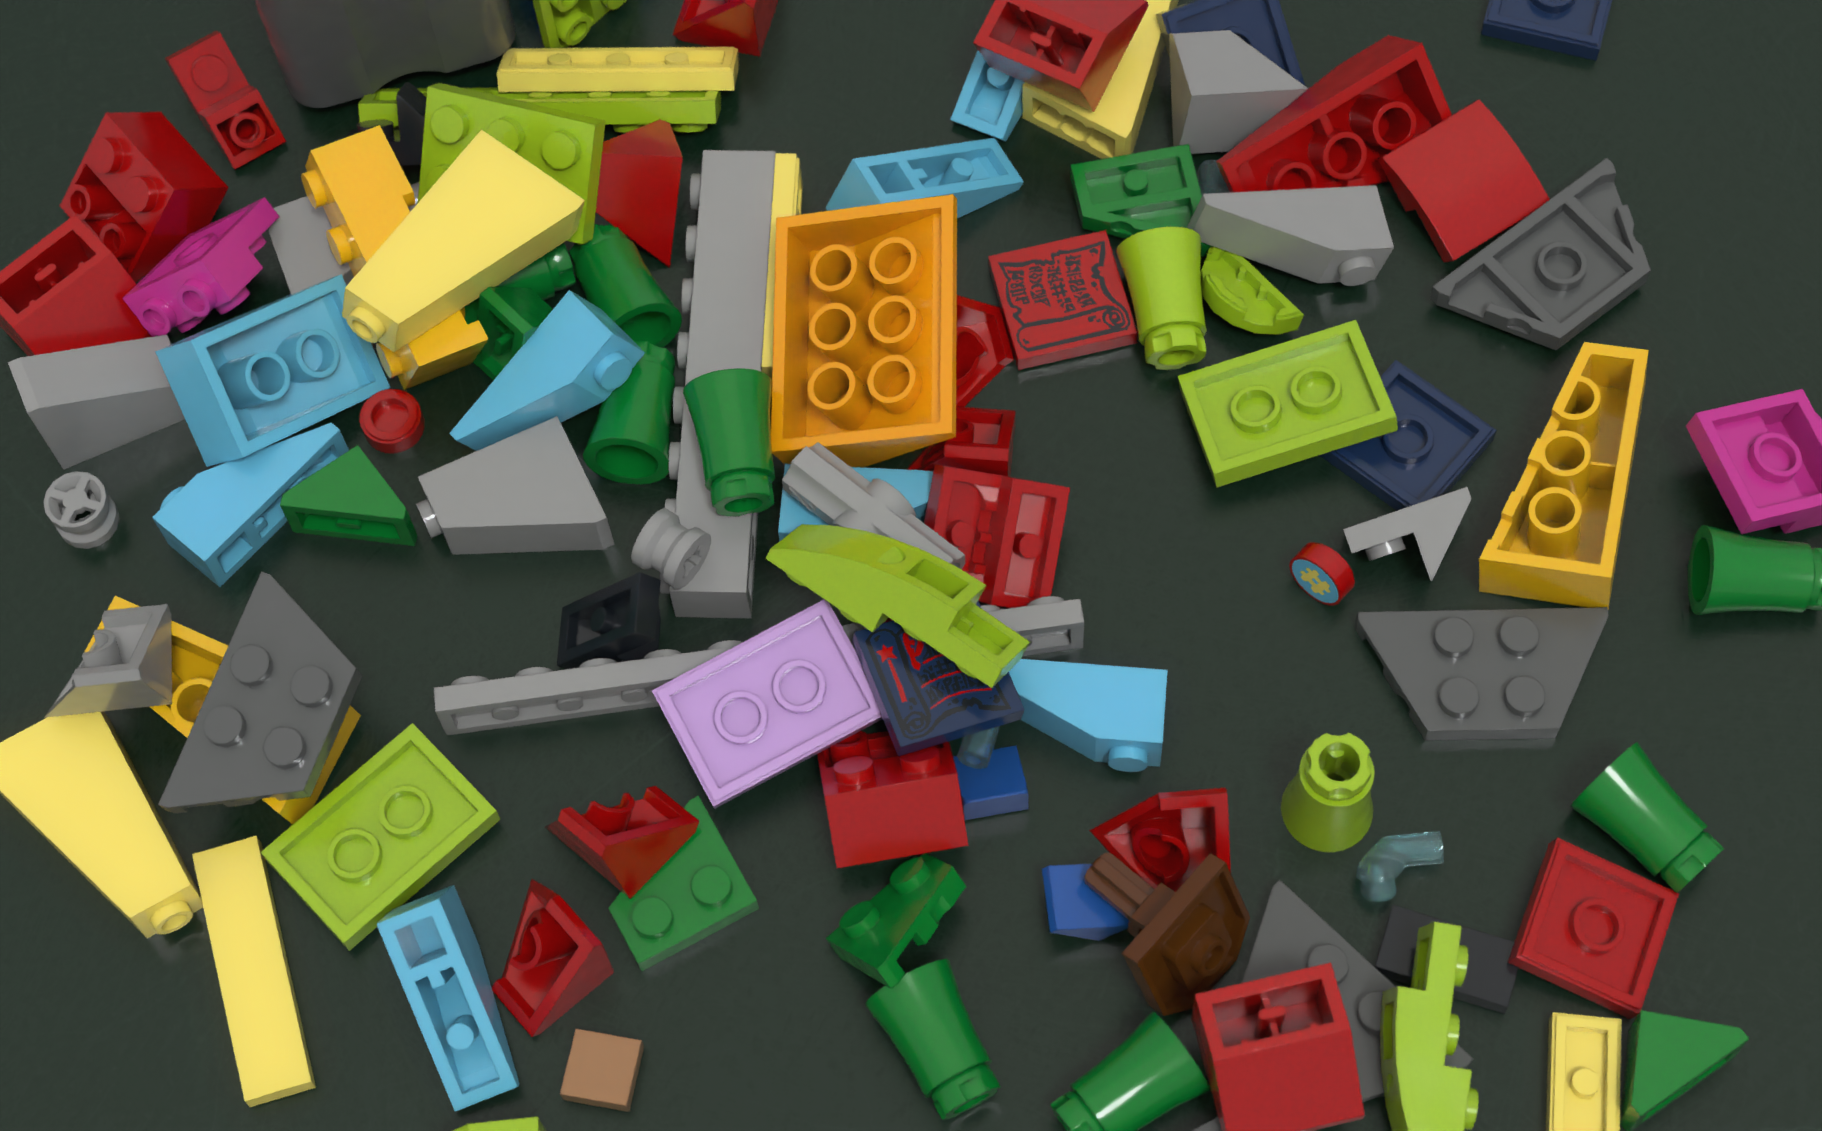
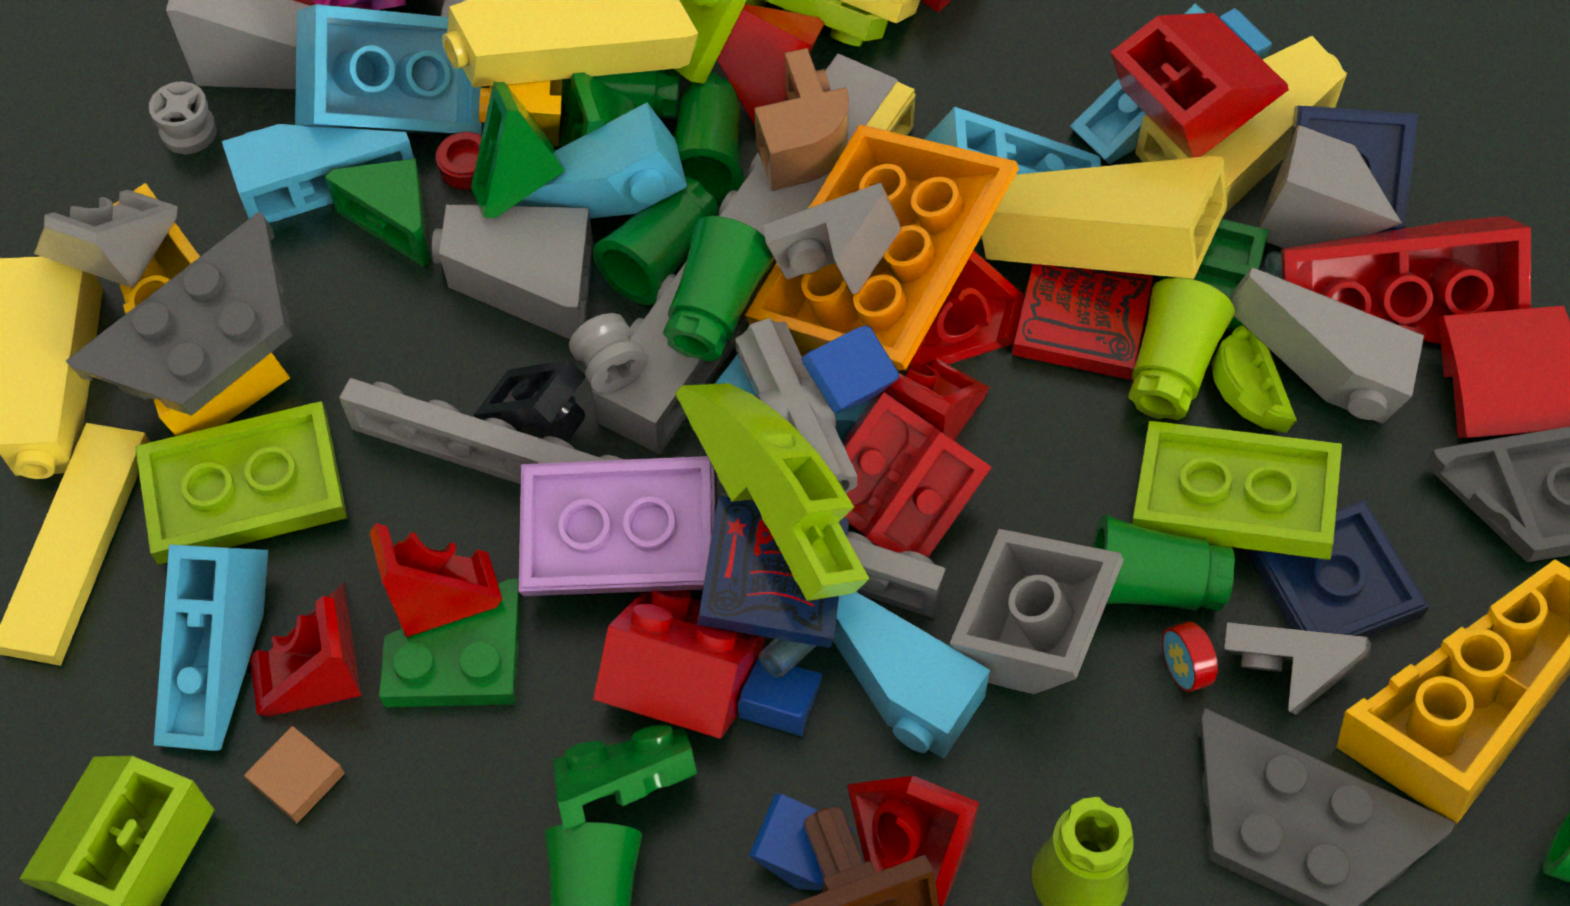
camera: 25 degrees right, 5 degrees down
(462, 404) = (512, 155): none -> green slope
(729, 243) = (807, 132): none -> medium nougat brick
(835, 328) = (843, 231): none -> light grey slope
(909, 459) = (851, 369): none -> blue slope
(1056, 197) = (1112, 217): none -> light yellow slope
(1180, 597) = (1035, 610): none -> light grey slope
(1254, 509) = (1166, 567): none -> green plant

